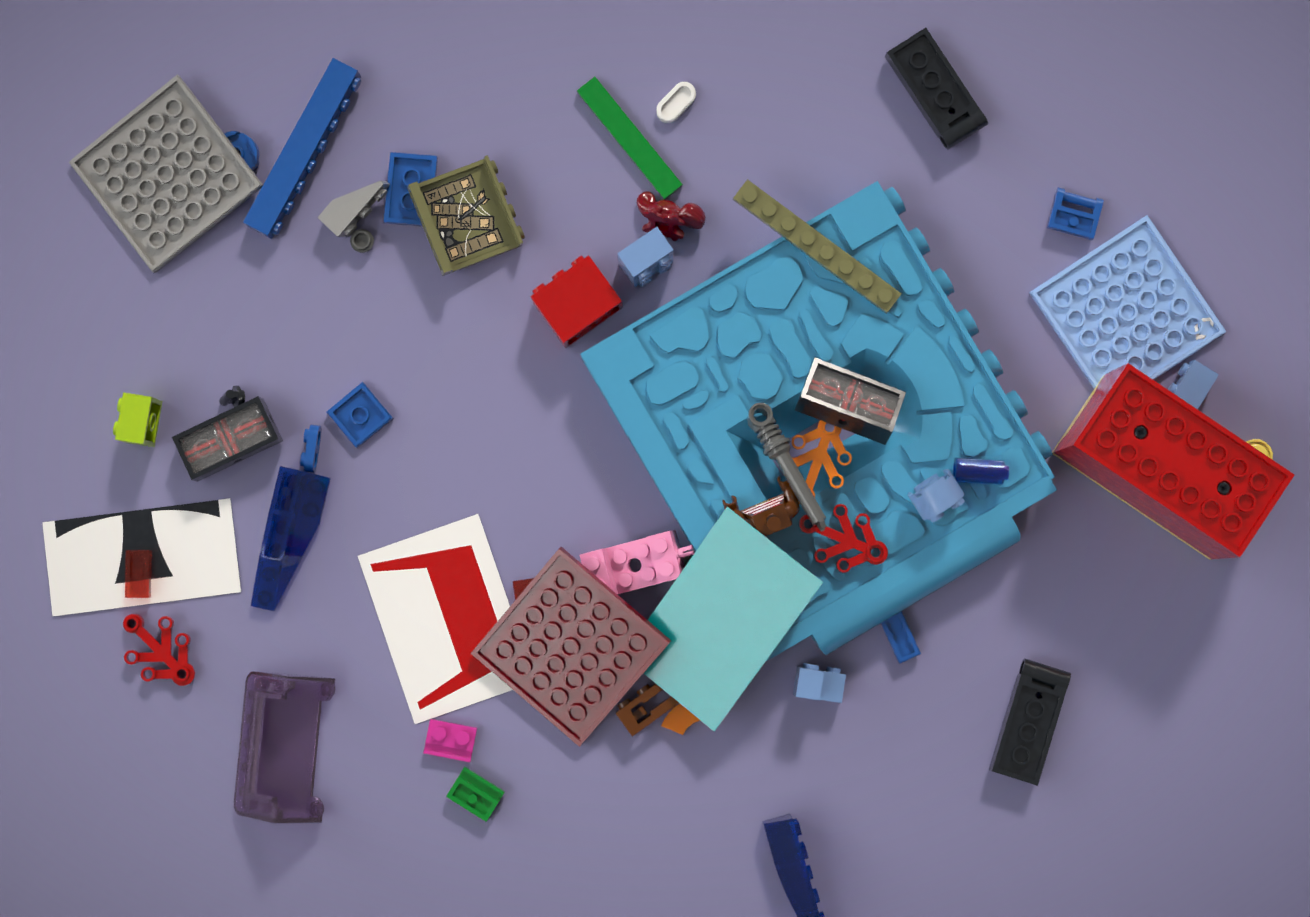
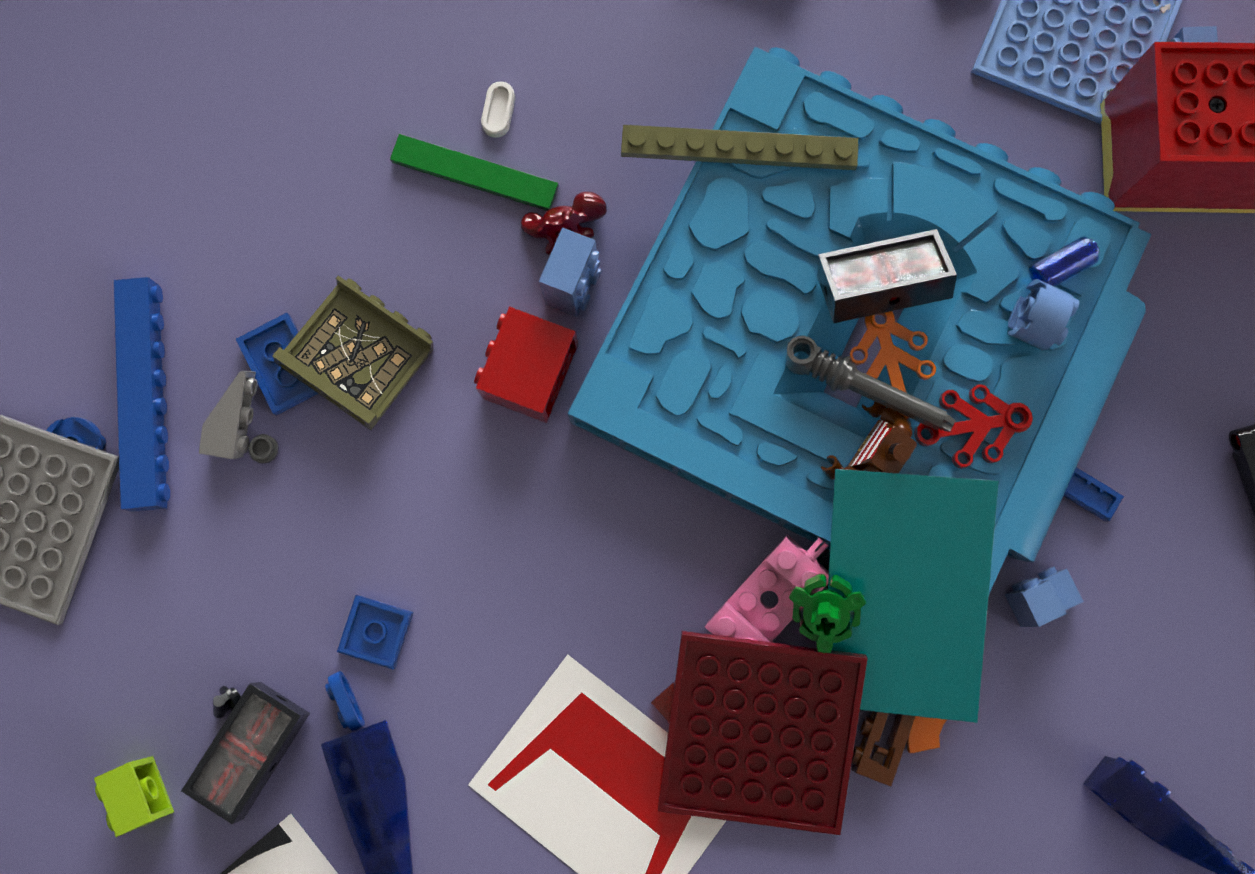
camera: 30 degrees left, 5 degrees down
(662, 595) = (826, 612): none -> green piece

